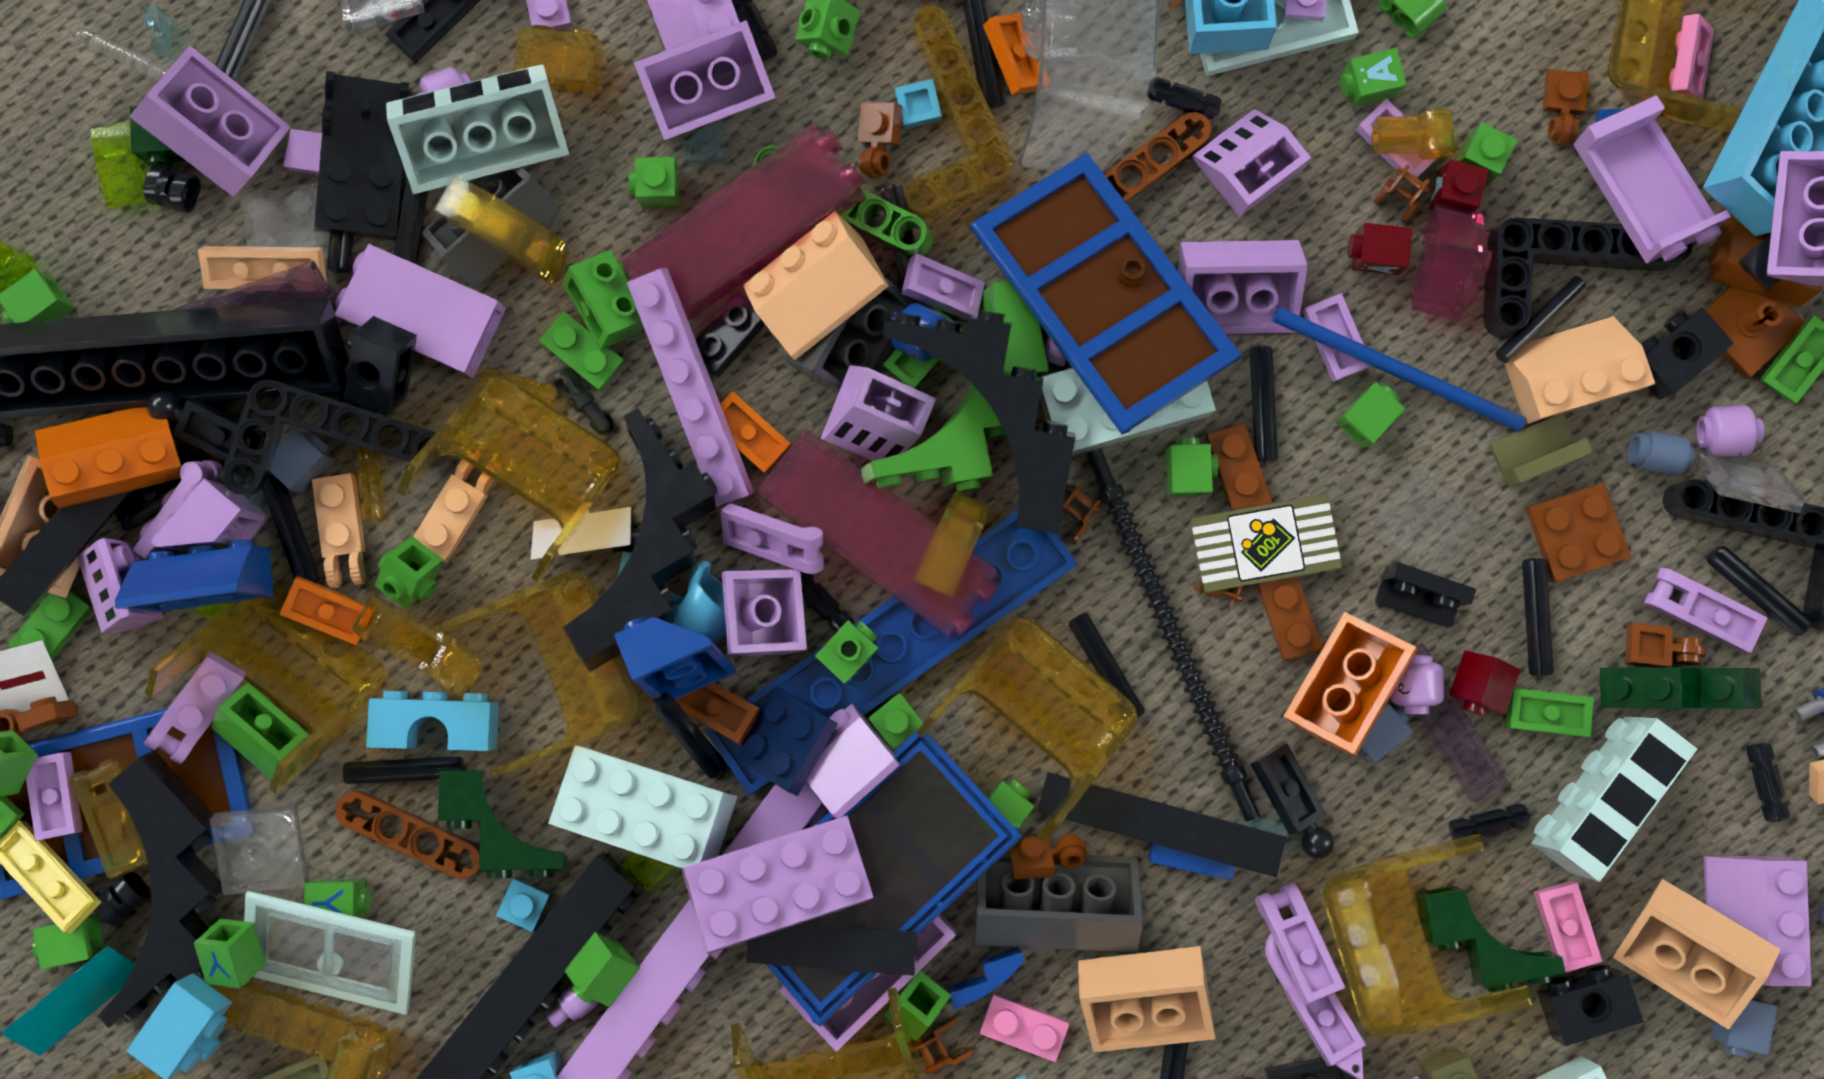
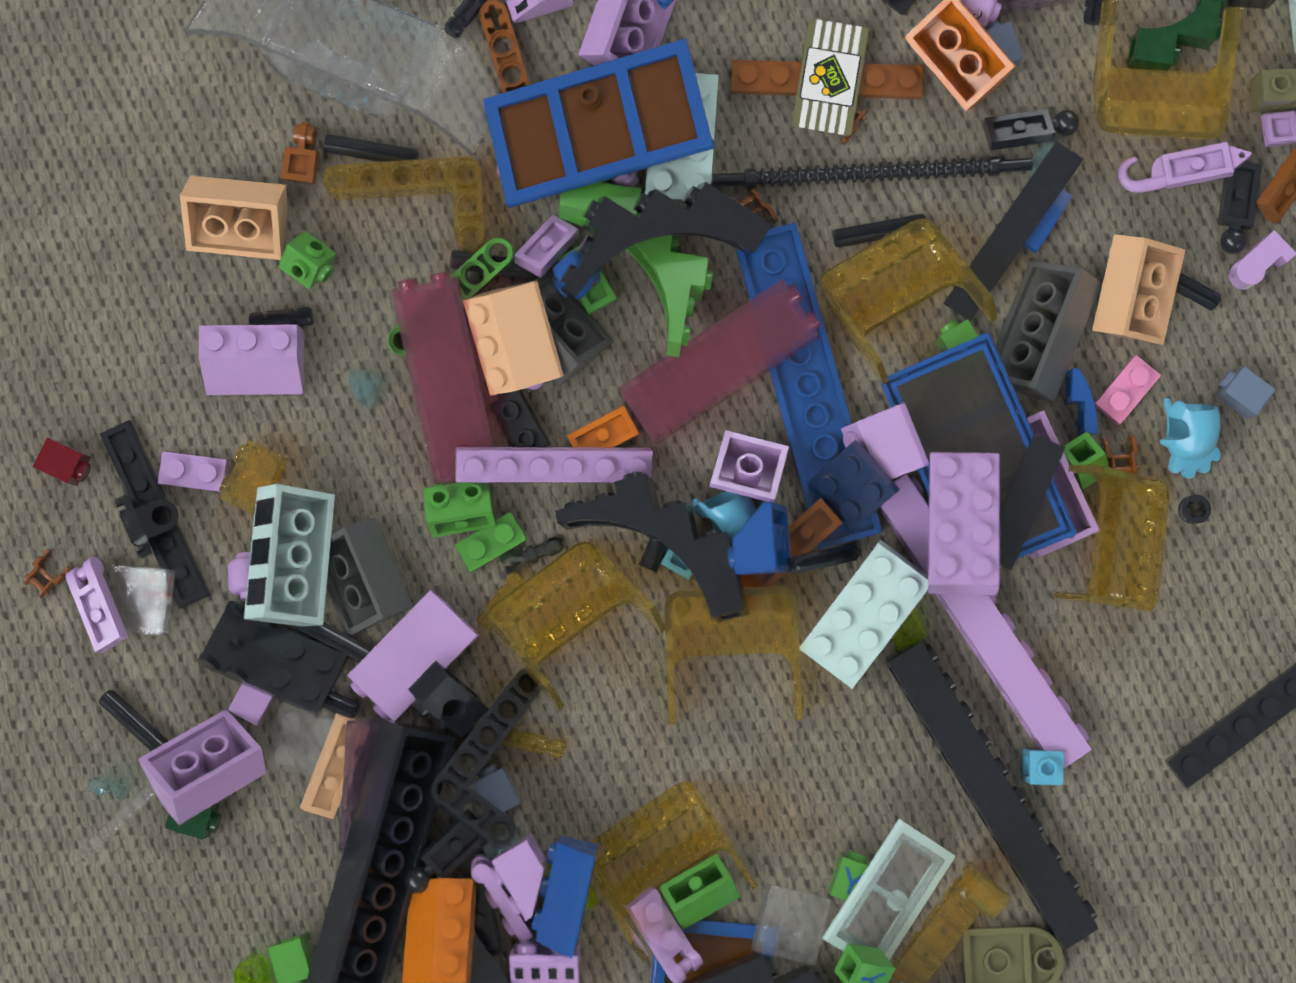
camera: 70 degrees left, 0 degrees up
(116, 165) = (204, 856): clear neon green slope -> none
(166, 187) = (241, 820): black wheel -> none
(289, 529) = (552, 818): black axle -> none
(323, 609) = (623, 809): orange plate -> none
(340, 526) = (558, 778): light nougat hinge -> none
(397, 720) = (725, 782): medium azure arch -> none
(399, 769) = (767, 793): black axle -> none
(408, 573) = (617, 733): bright green brick -> none
(408, 839) = (815, 801): dark orange beam -> none
(417, 642) = (678, 743): clear yellow arch -> none
(453, 511) = (581, 687): light nougat hinge -> none
(499, 852) = (810, 751): dark green arch -> none
(503, 228) = (377, 562): clear yellow arch -> none
(524, 904) = (903, 735): medium azure plate -> none
(569, 1007) = (991, 720): lavender cylinder -> none
(596, 532) = (640, 569): sticker -> none
(601, 970) = (976, 688): bright green brick -> none
(656, 182) = (381, 436): bright green brick -> none
(704, 80) = (319, 367): lavender slope -> none
(773, 539) = (694, 443): lavender plate -> none
(823, 602) = (758, 423): black axle -> none
(848, 650) = (801, 415): bright green brick -> none
(876, 415) = (628, 330): lavender slope -> none
(879, 127) = (401, 249): dark orange plate -> none
(896, 721) = (865, 399): bright green brick -> none
(918, 104) = (394, 214): medium azure plate -> none
(953, 543) = (751, 302): clear yellow arch -> none
(1017, 67) = (397, 127): orange plate -> none
(1036, 858) = (1007, 332): dark orange plate -> none
(1190, 468) = (752, 112): bright green brick -> none
(1263, 403) = (722, 40): black axle -> none
(1300, 944) = (1136, 162): lavender plate -> none

